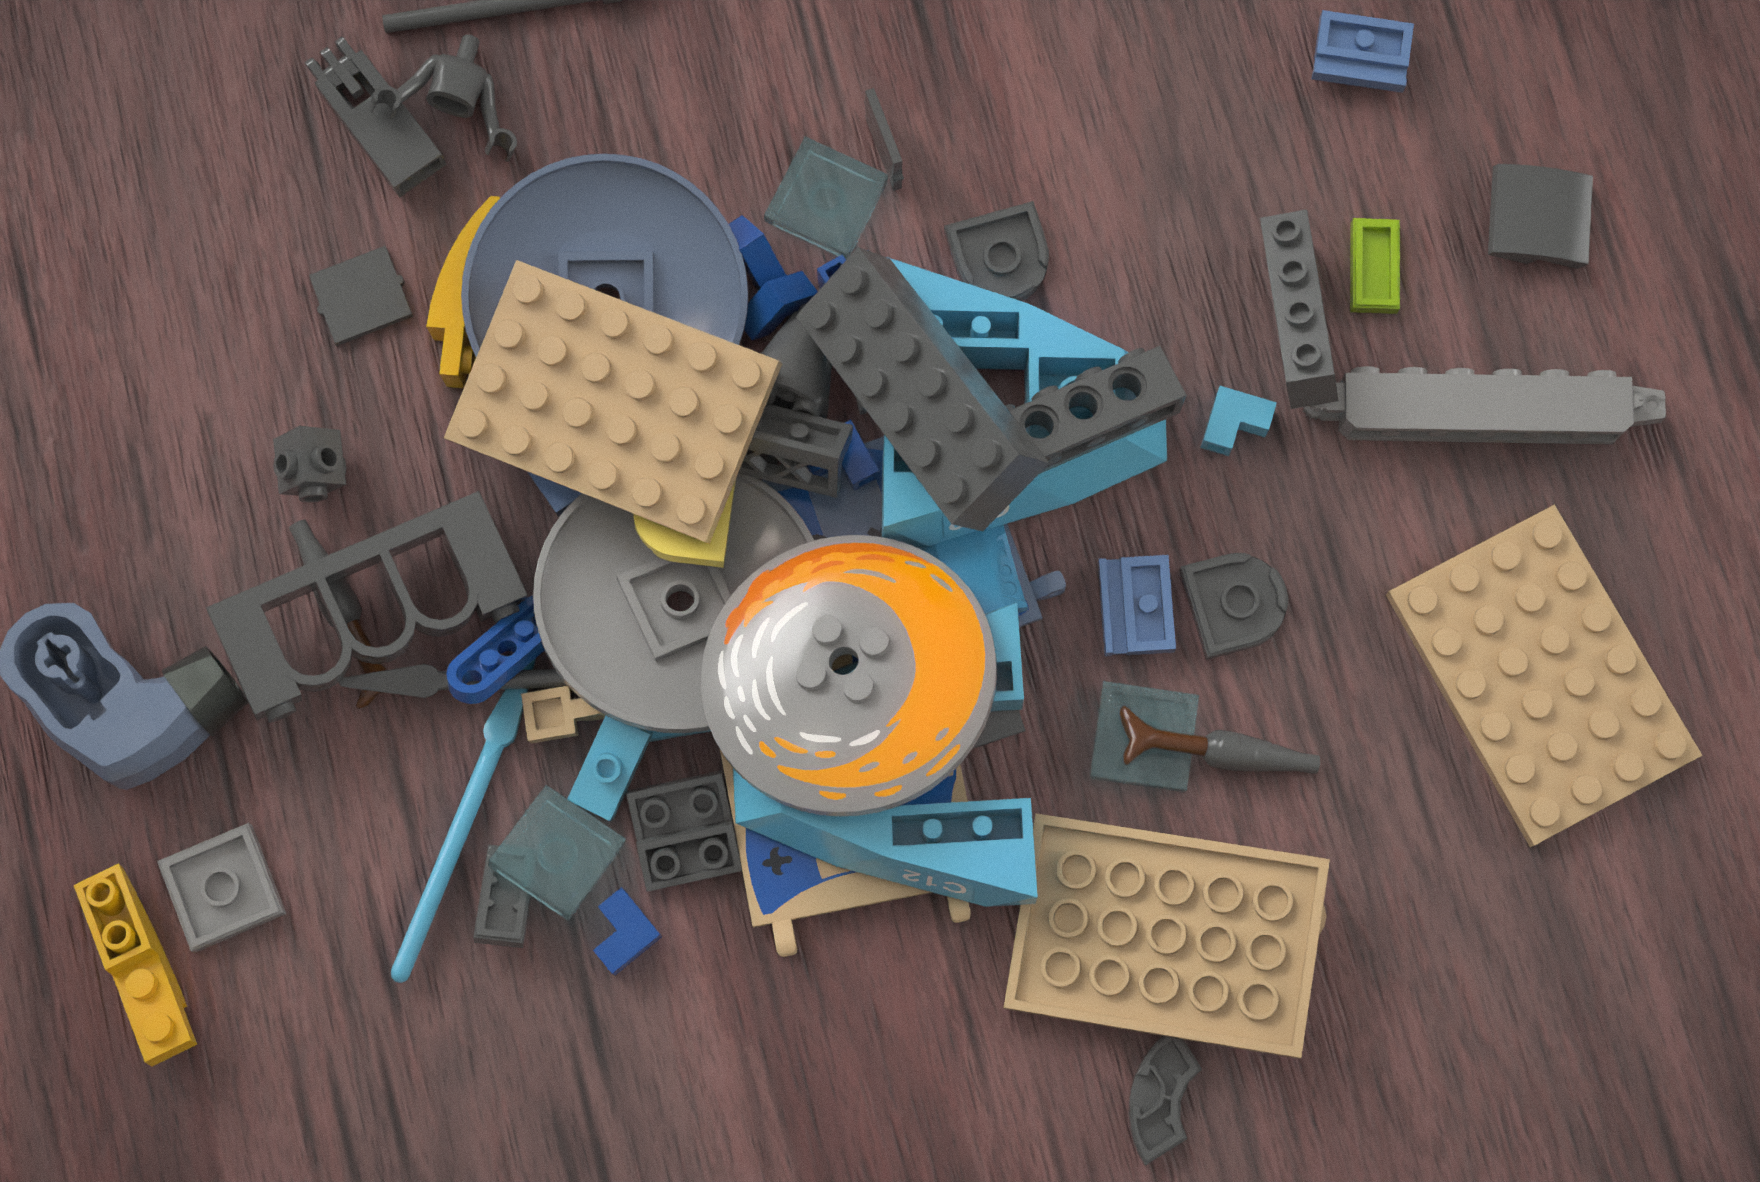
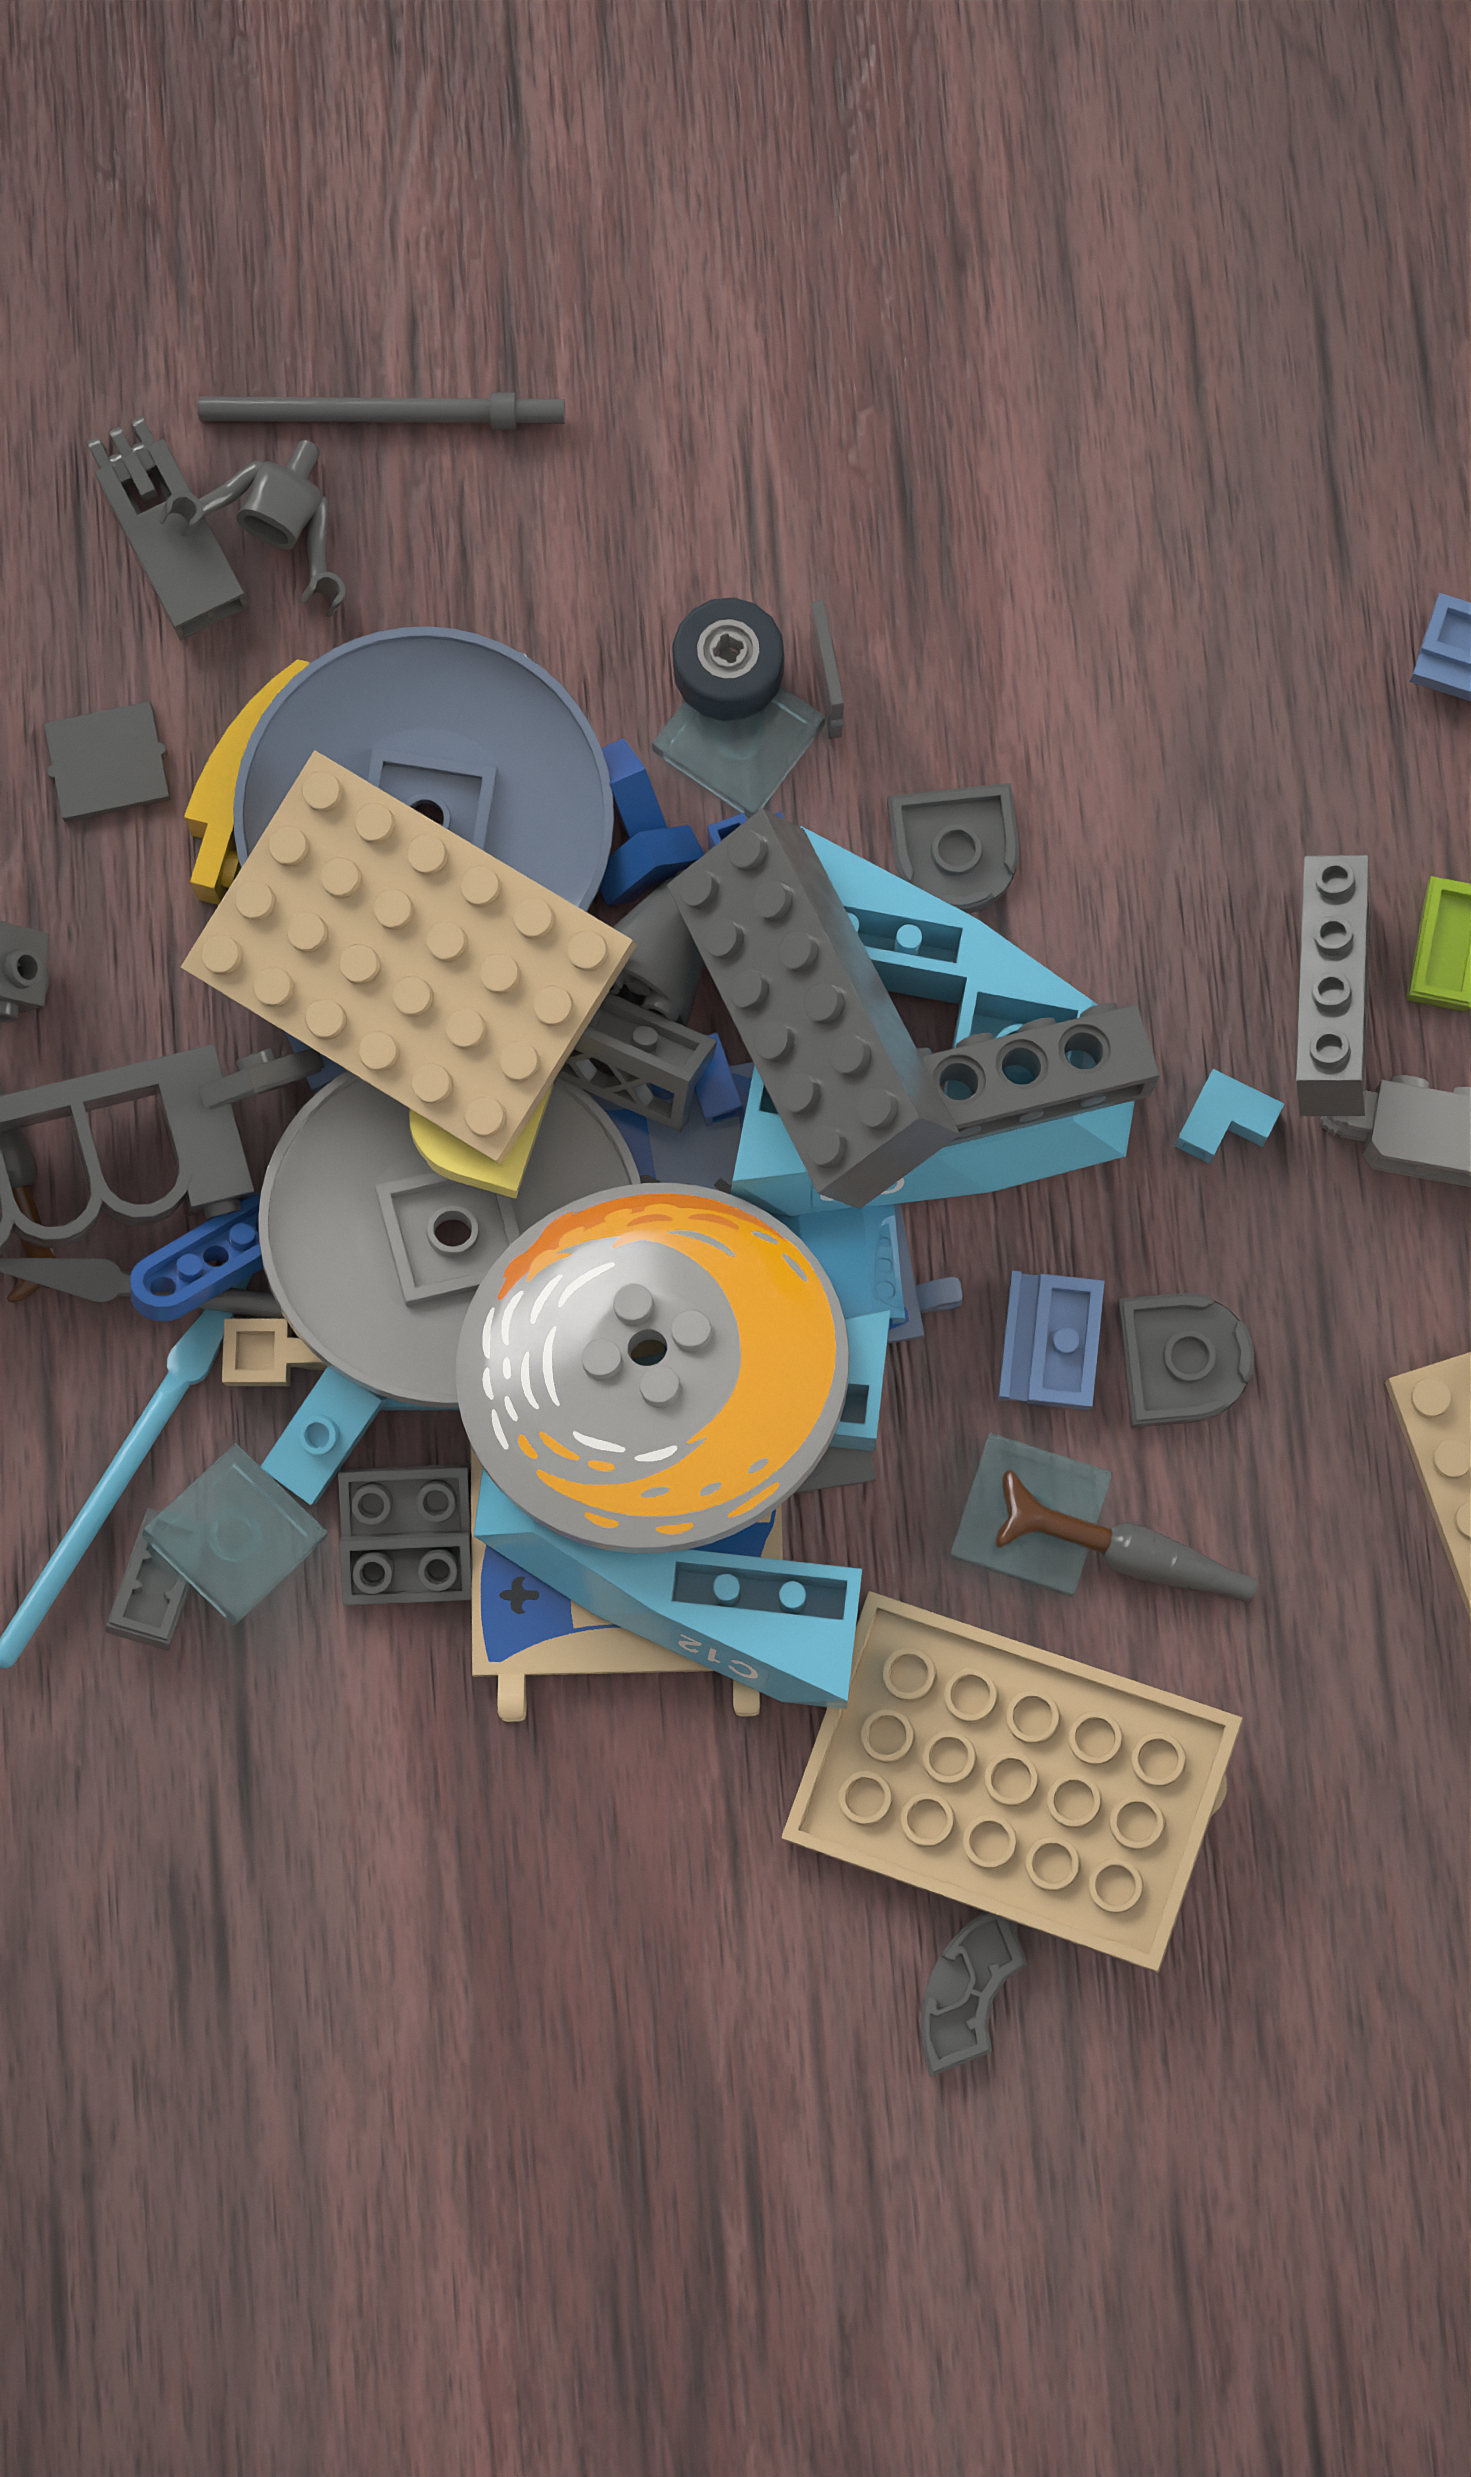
camera: 10 degrees right, 0 degrees up
(516, 508) = (260, 1074): none -> dark grey plate
(633, 932) = (315, 1656): blue piece -> none
(814, 161) = (730, 683): none -> black wheel

